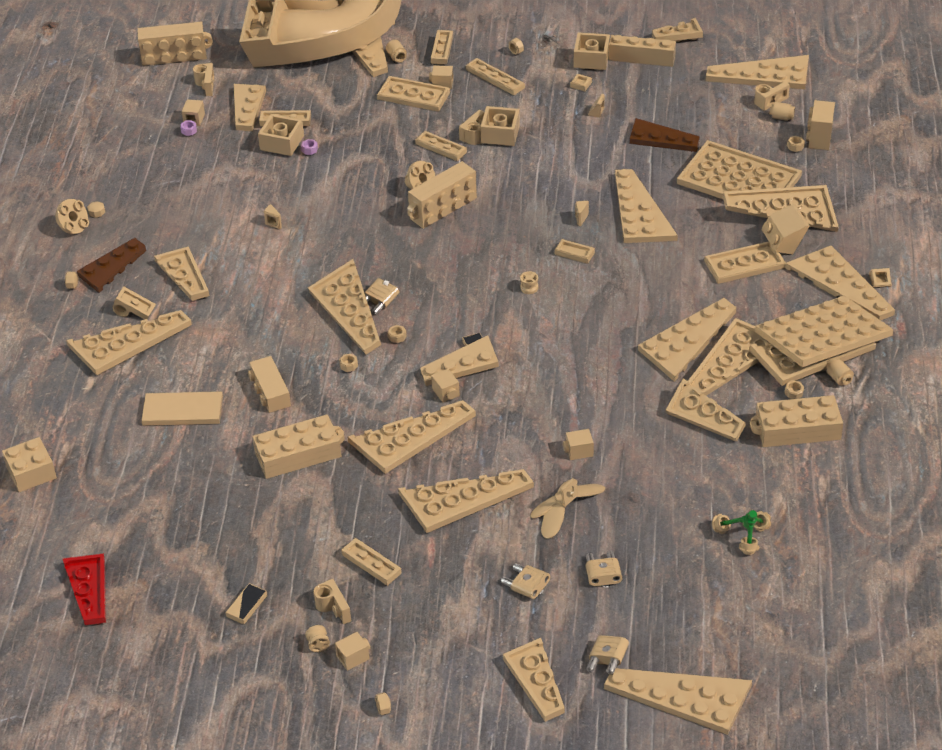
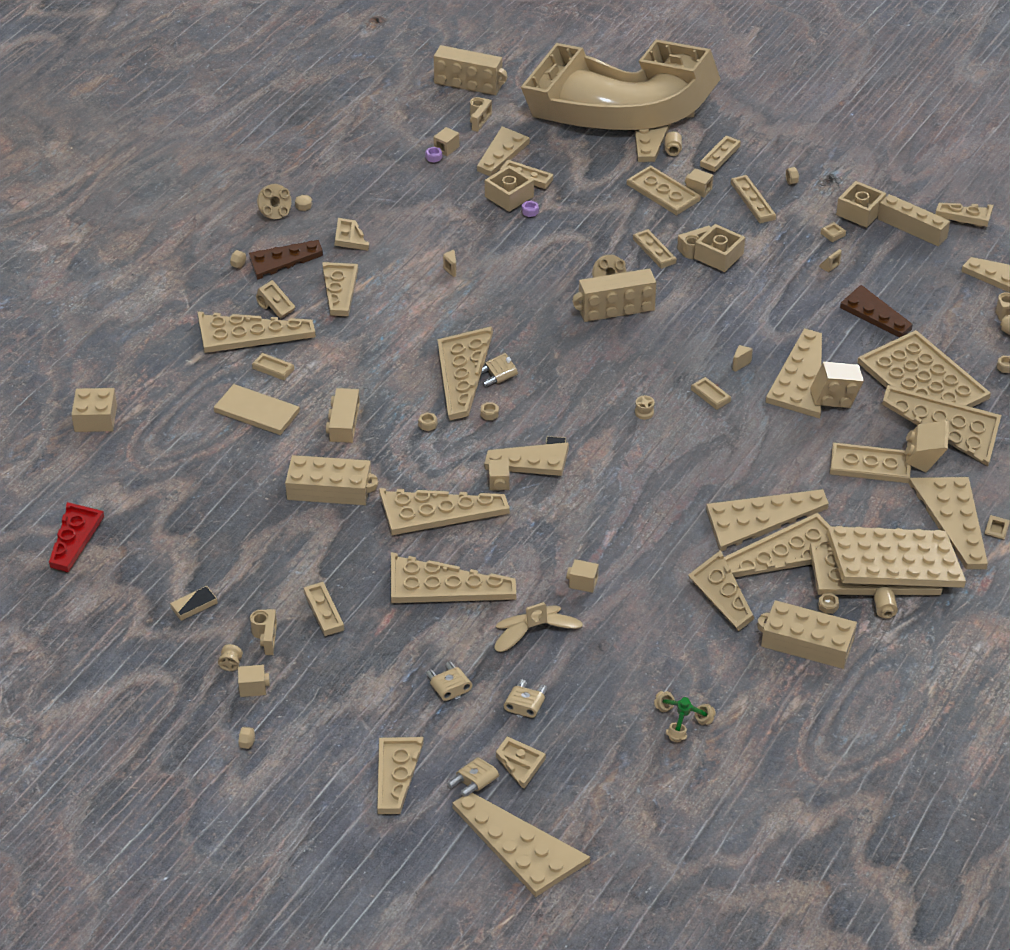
camera: 25 degrees right, 0 degrees up
(161, 224) = (350, 235): none -> tan wing
(170, 365) = (273, 366): none -> tan tile
(635, 623) = (520, 760): none -> tan wing
(680, 206) = (836, 384): none -> tan brick

